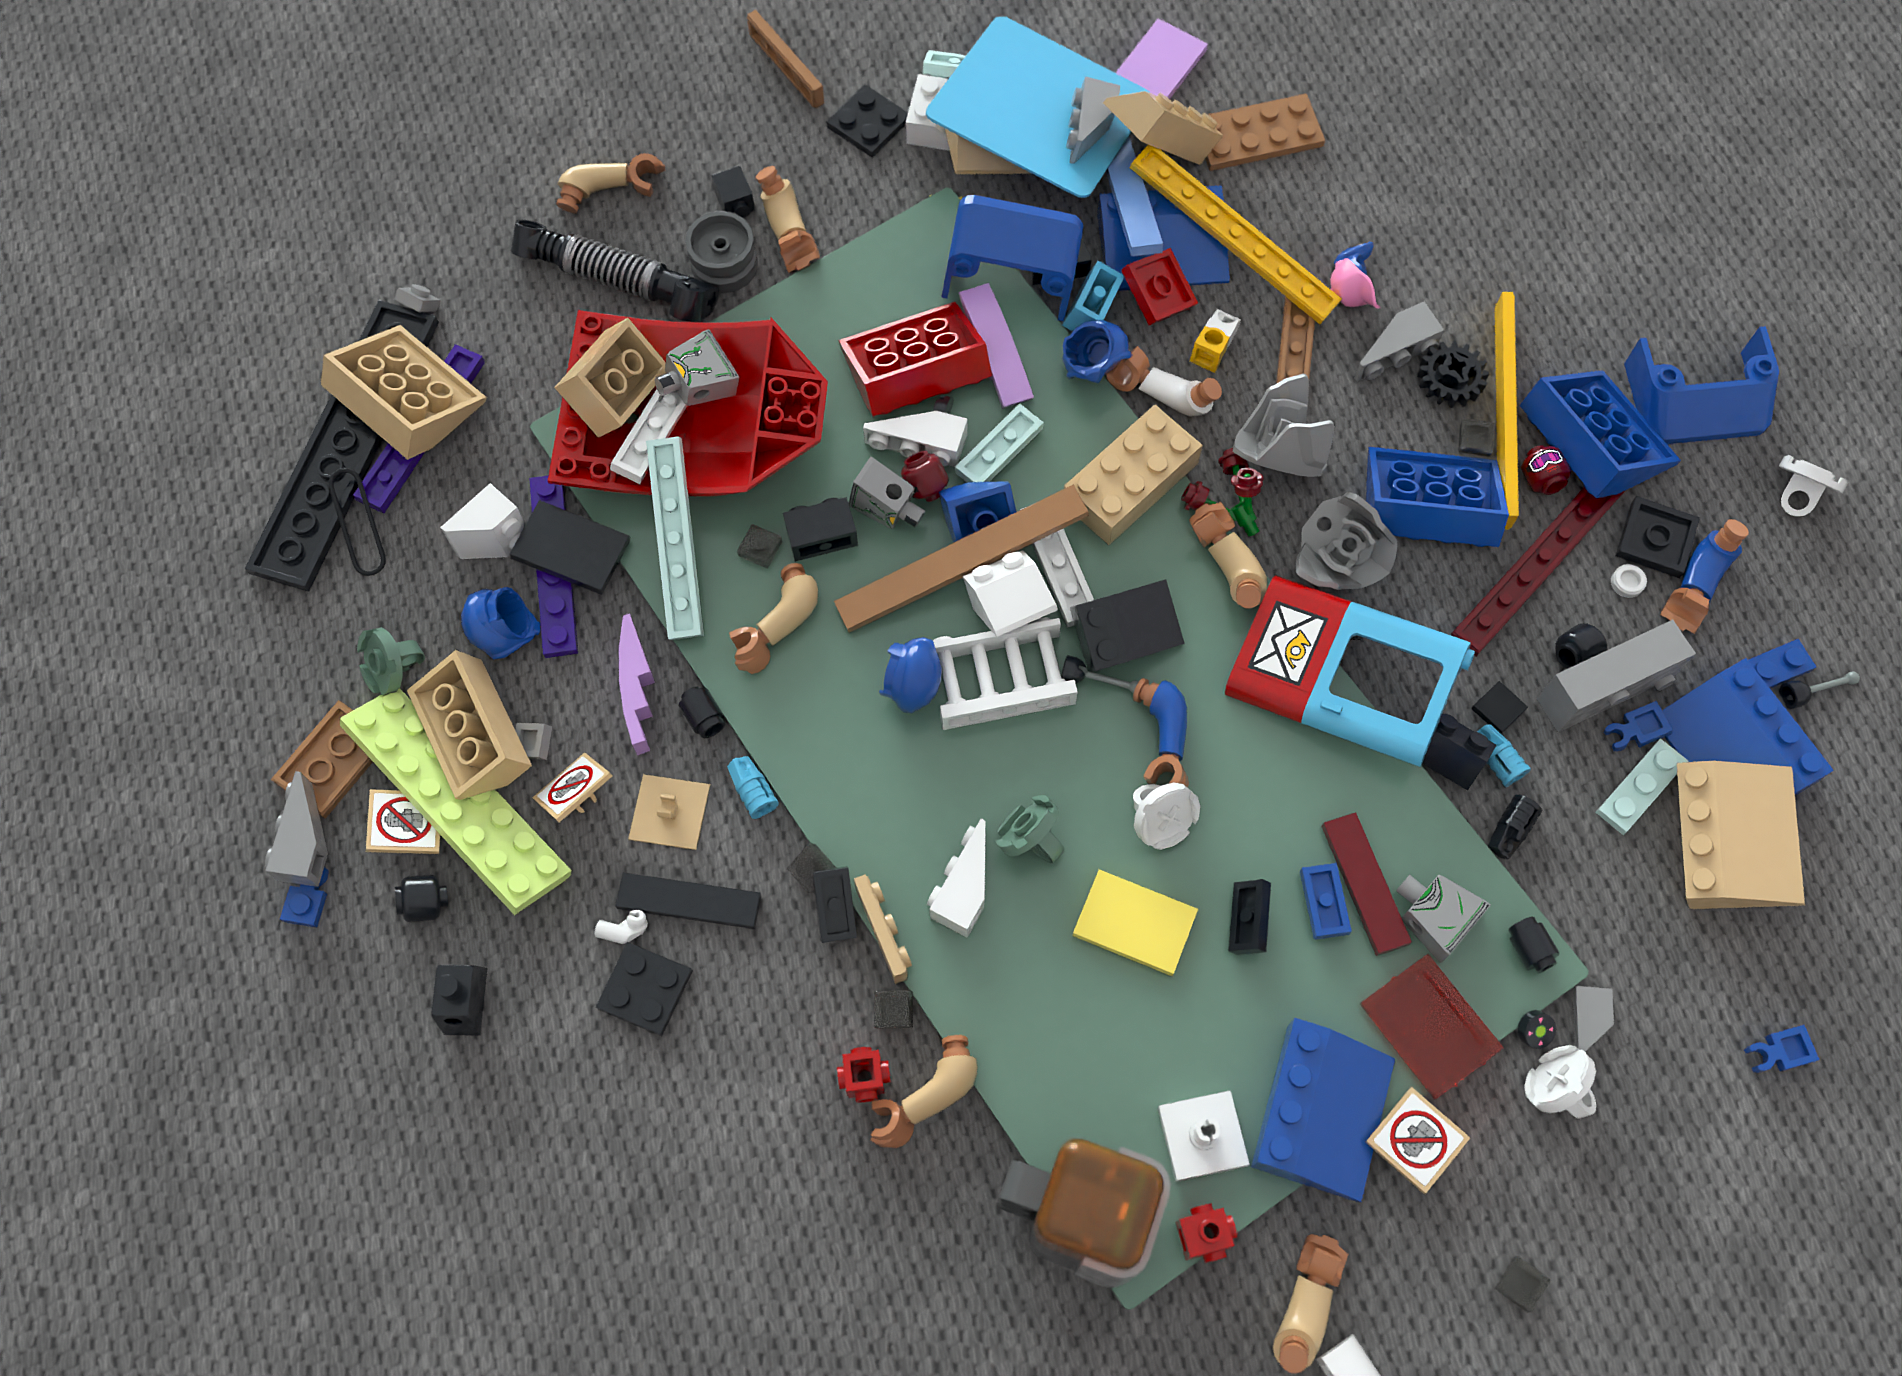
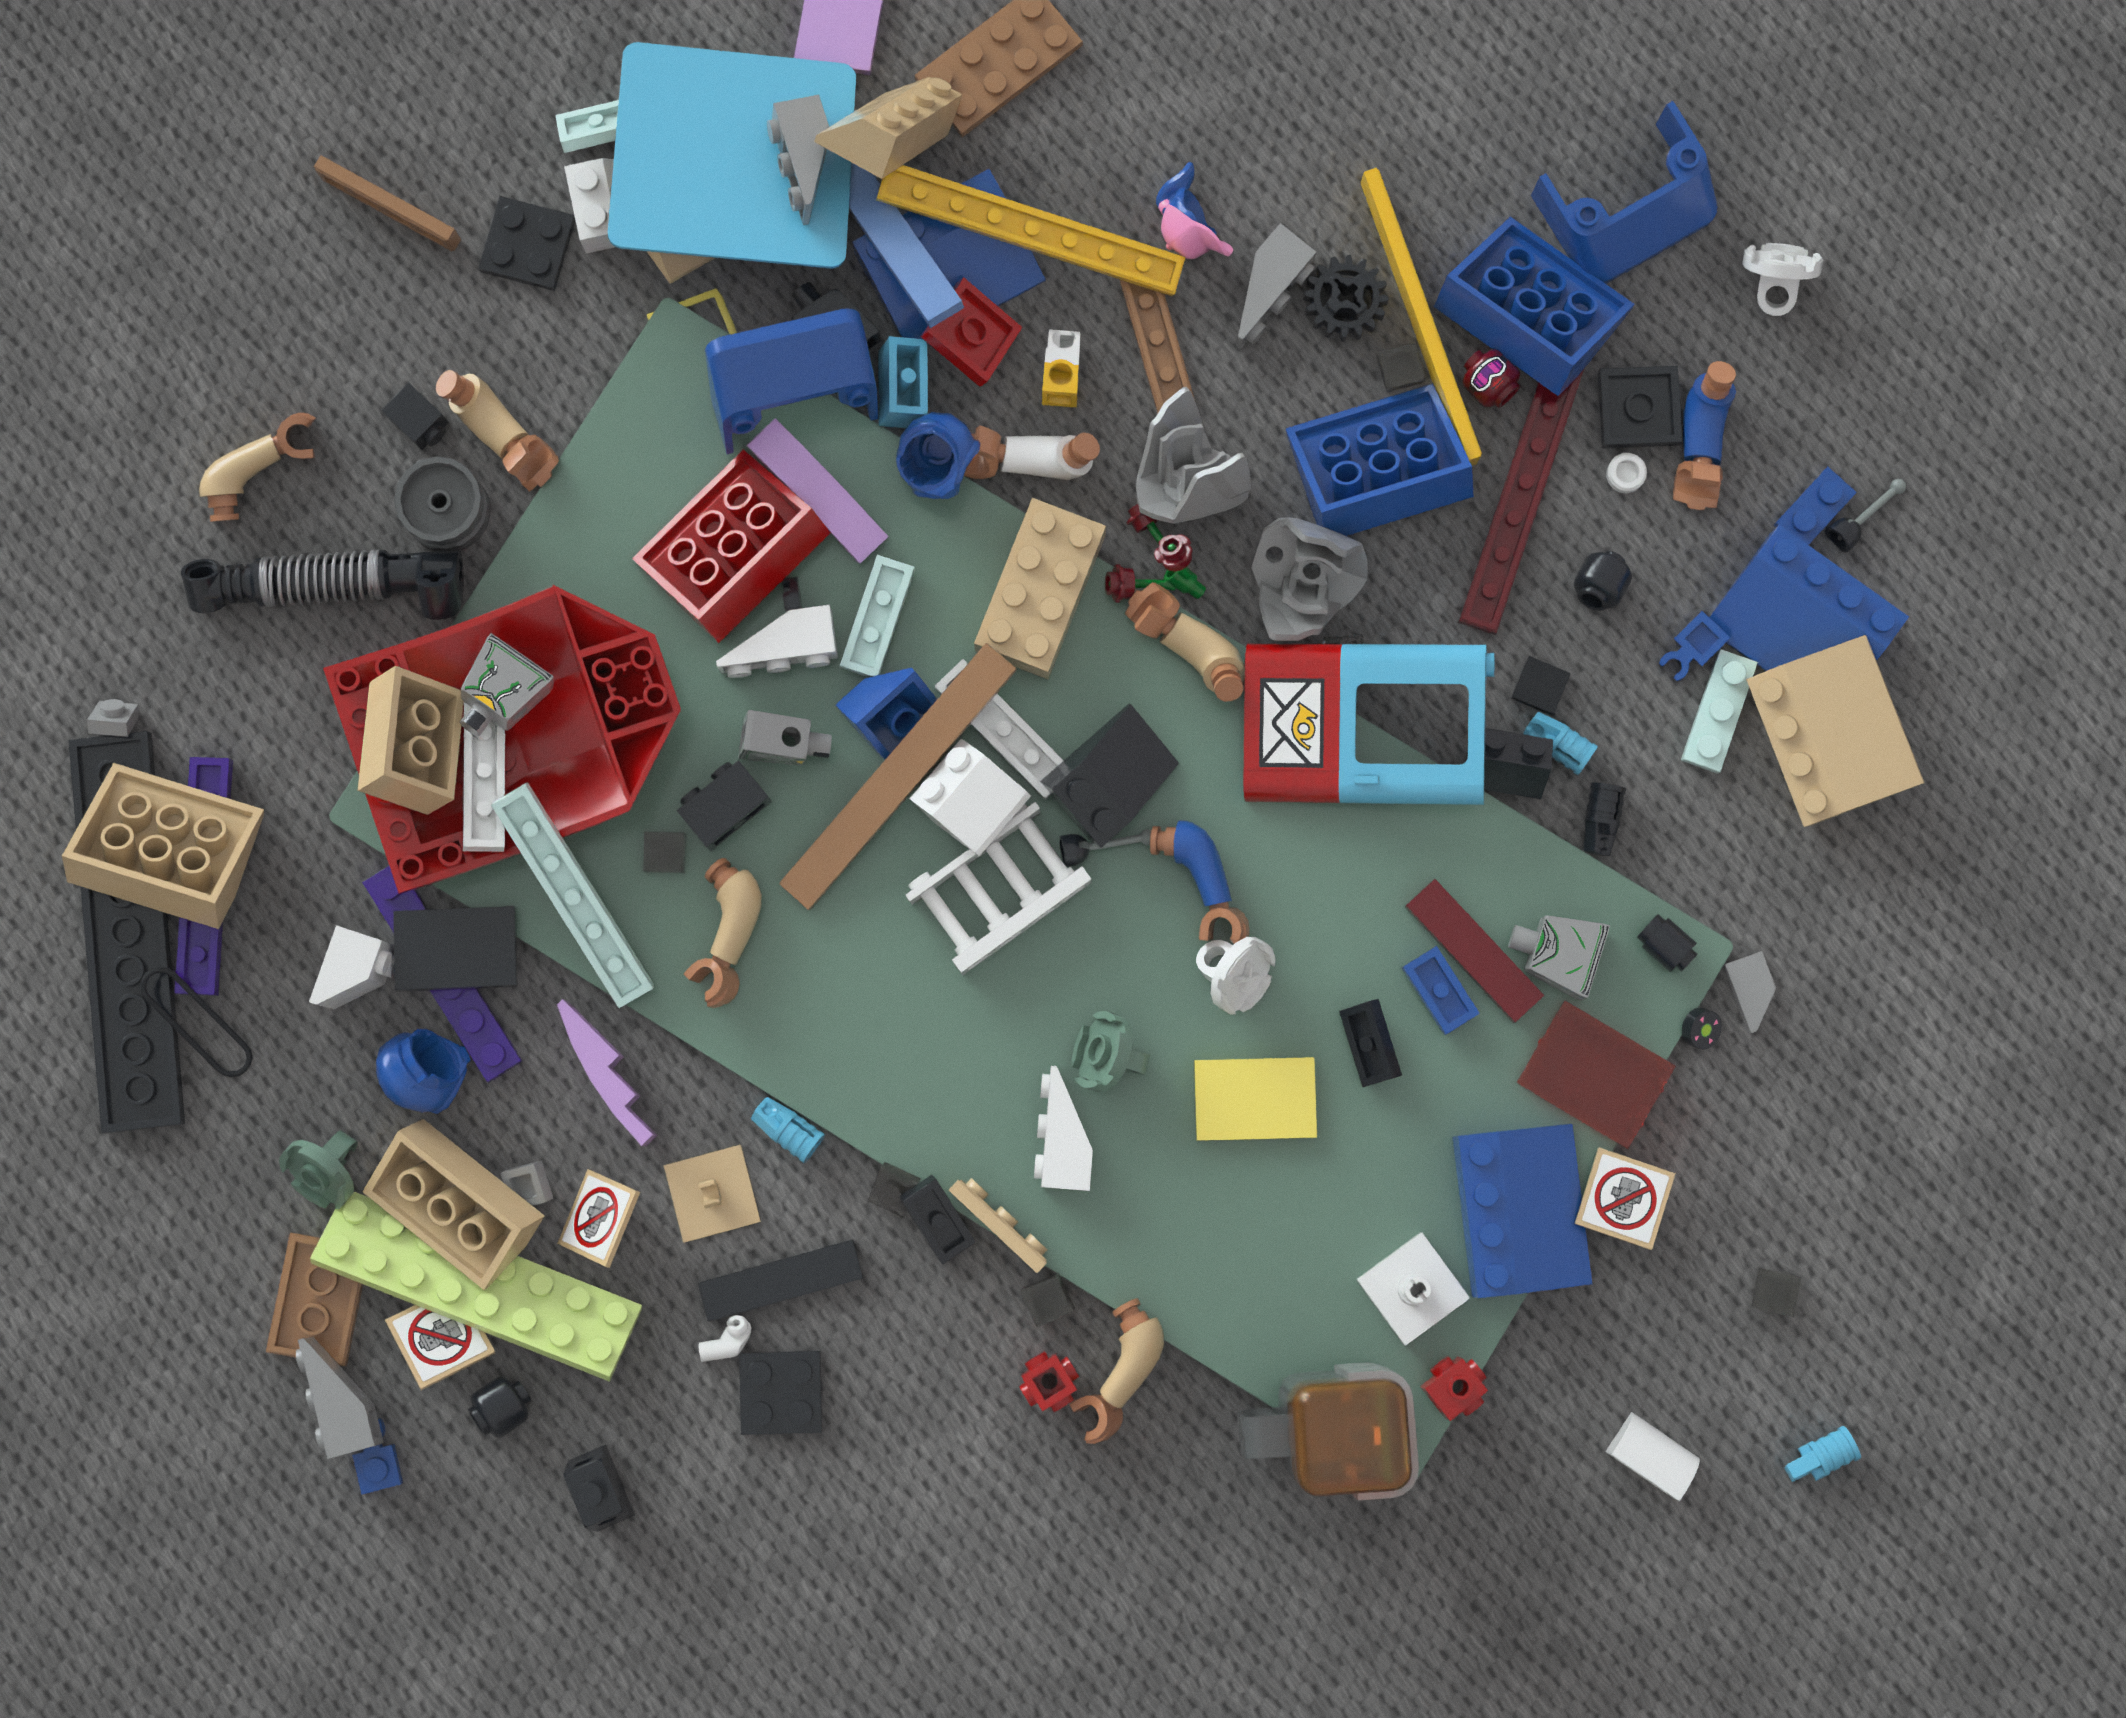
camera: 25 degrees left, 15 degrees up
(702, 712) = (694, 1071): black brick -> none
(912, 674) = (907, 936): blue helmet -> none
(925, 474) = (811, 693): dark red head -> none
(1310, 1304) = (1582, 1413): piece -> none
(1563, 1082) = (1745, 1076): white tile -> none
(1616, 675) = (1651, 604): light grey brick -> none
(1786, 1048) = (1954, 937): blue plate -> none

